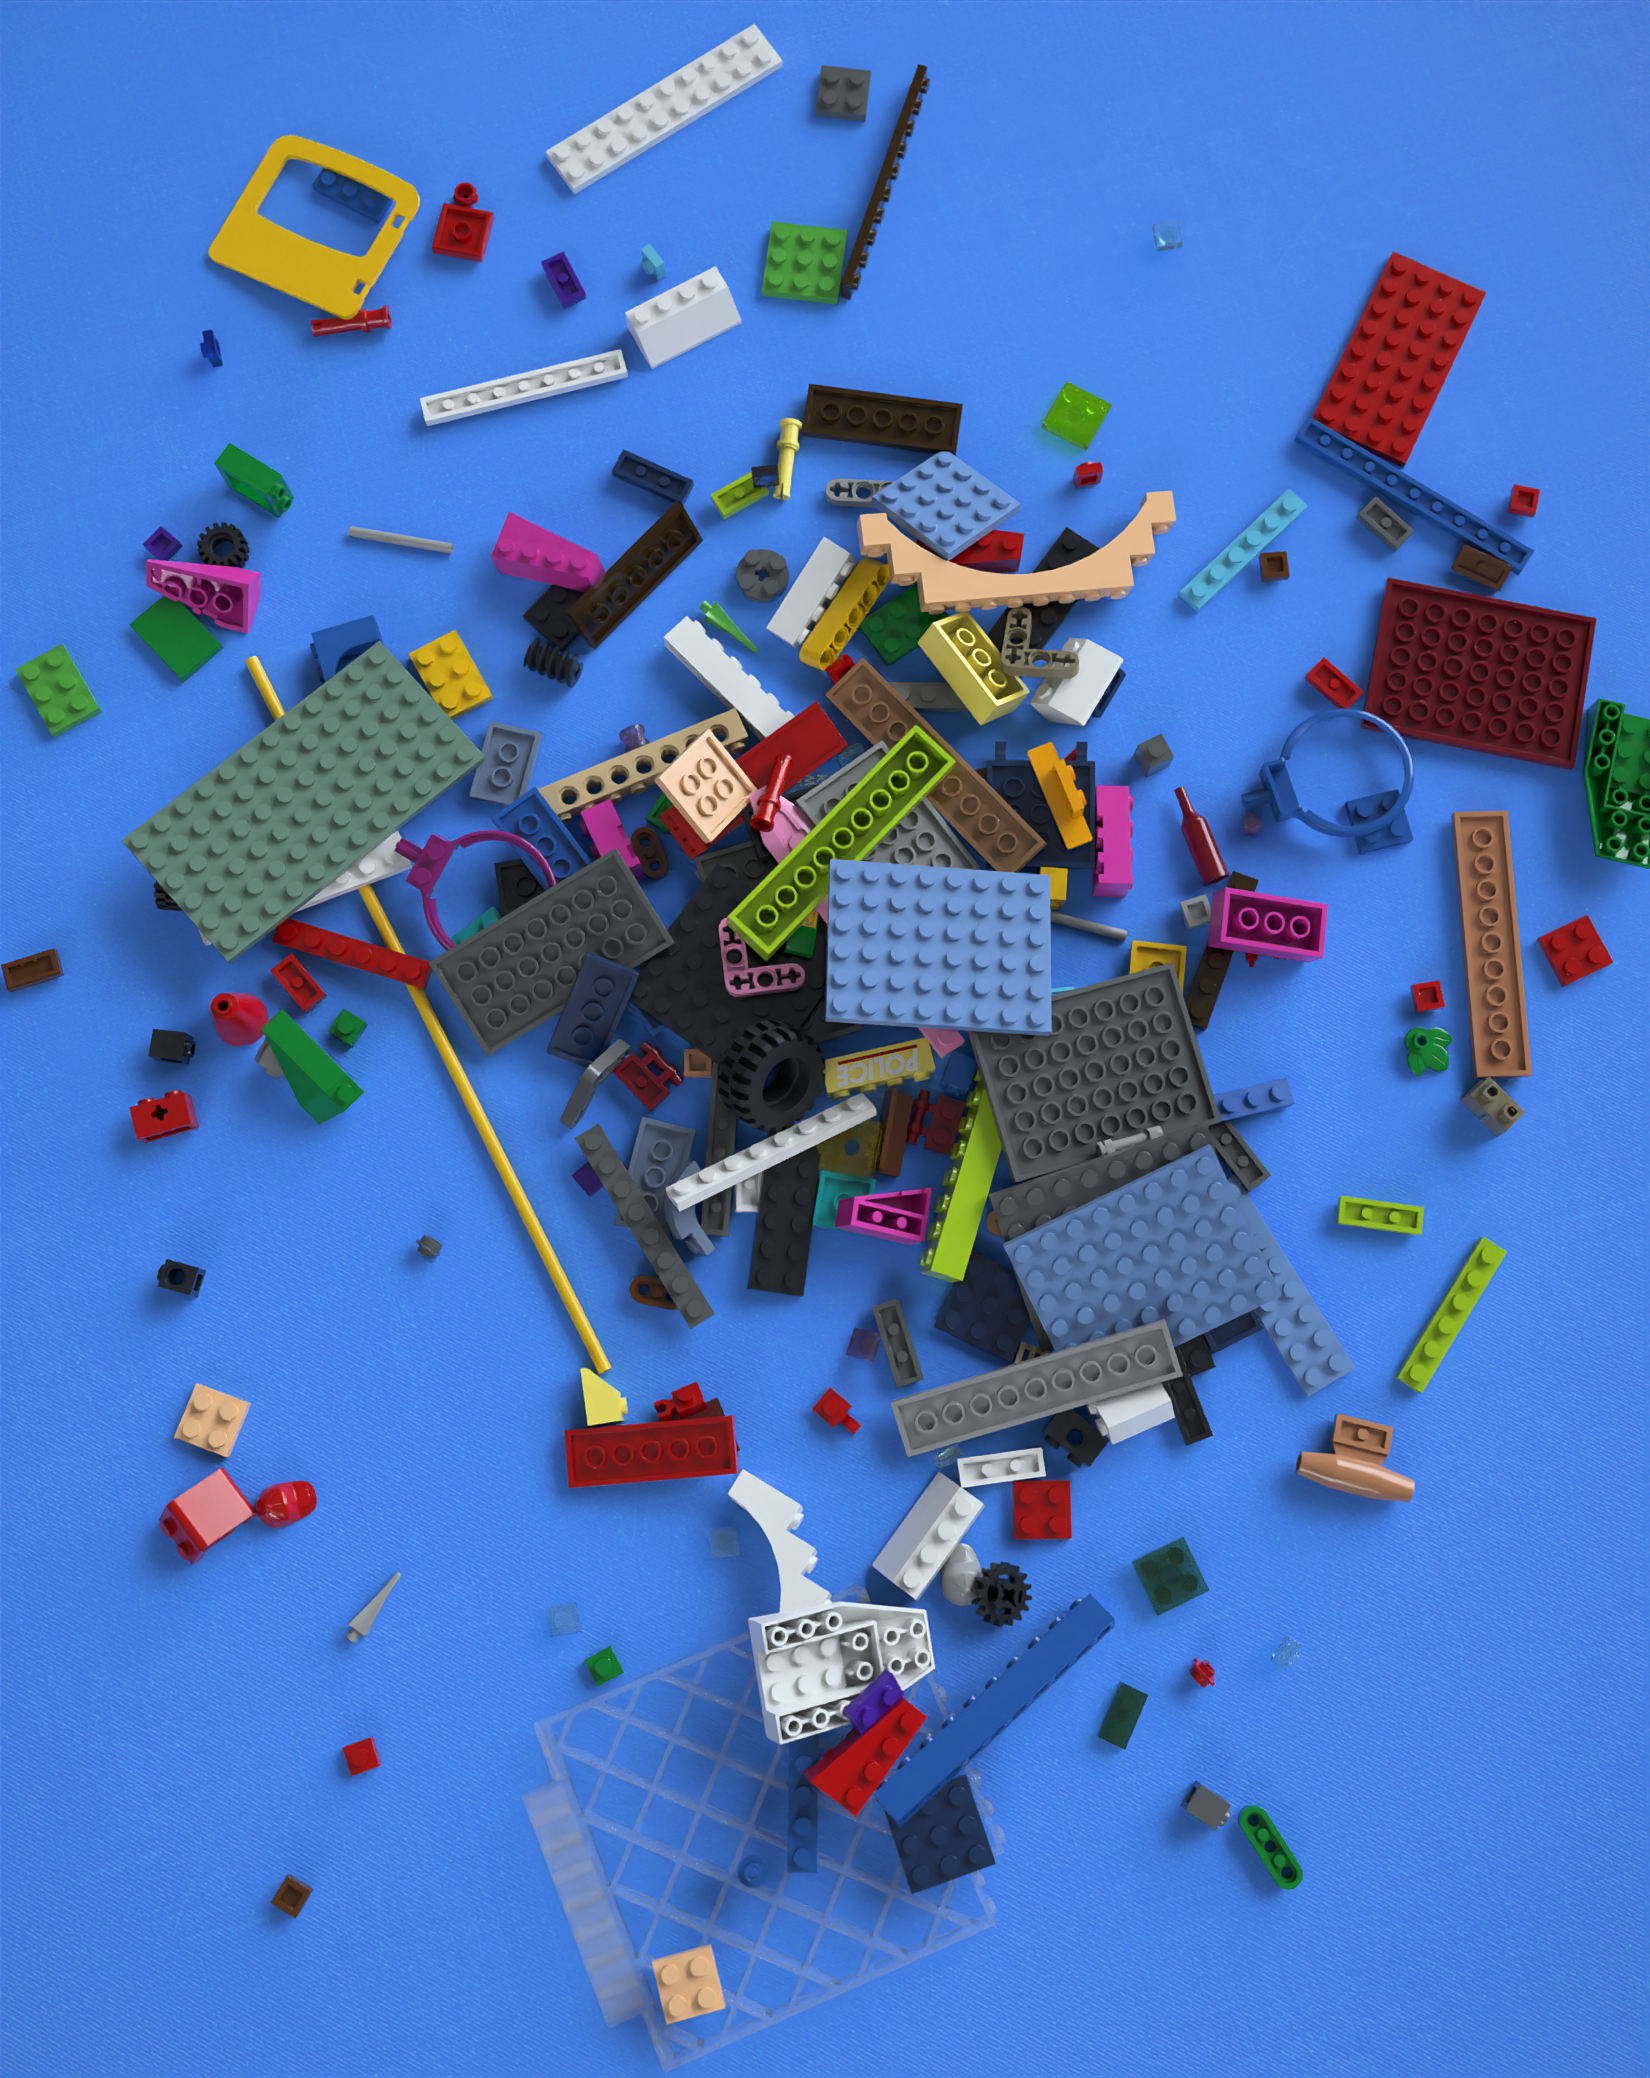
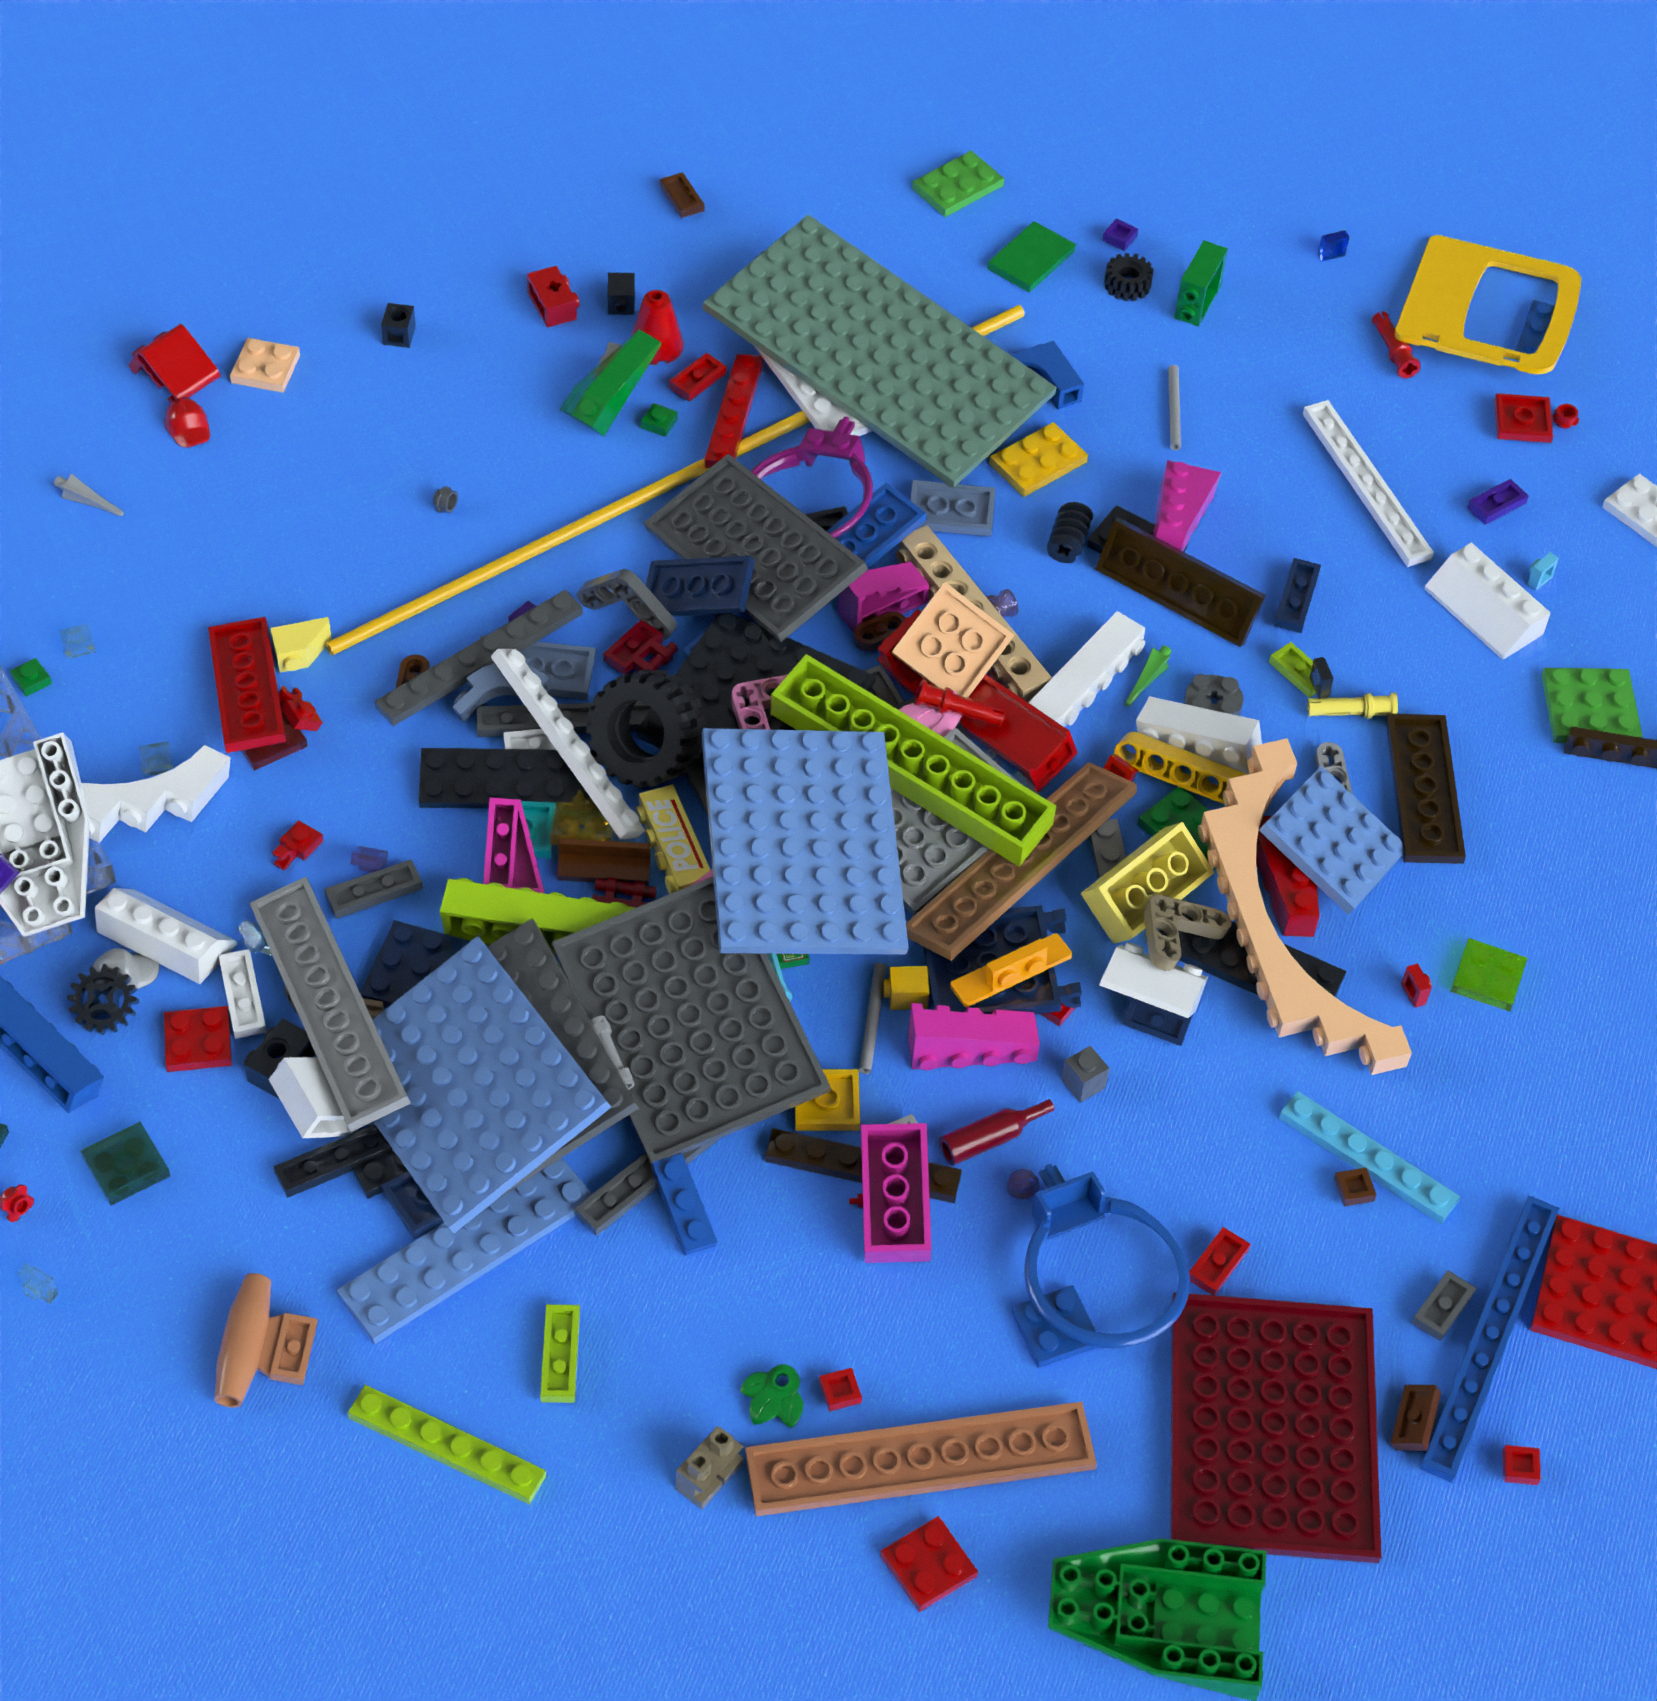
camera: 80 degrees right, 25 degrees down
(216, 591) = (1083, 273): dark pink wedge -> none

